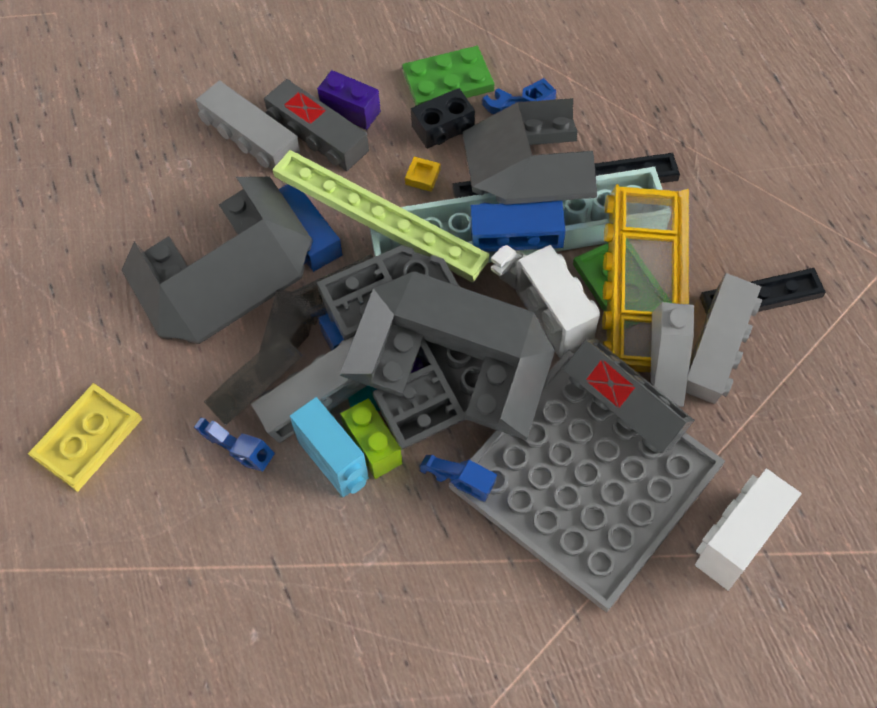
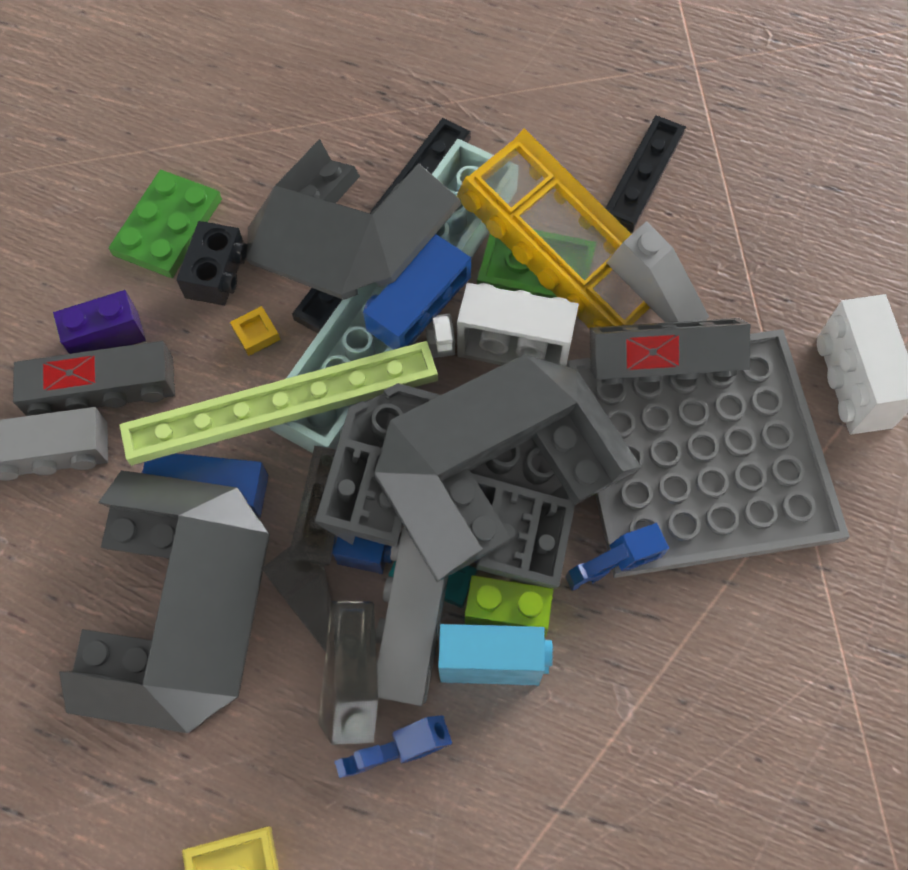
camera: 50 degrees left, 5 degrees up
(535, 92) = (269, 170): blue piece -> none
(721, 338) = (647, 196): light grey brick -> none

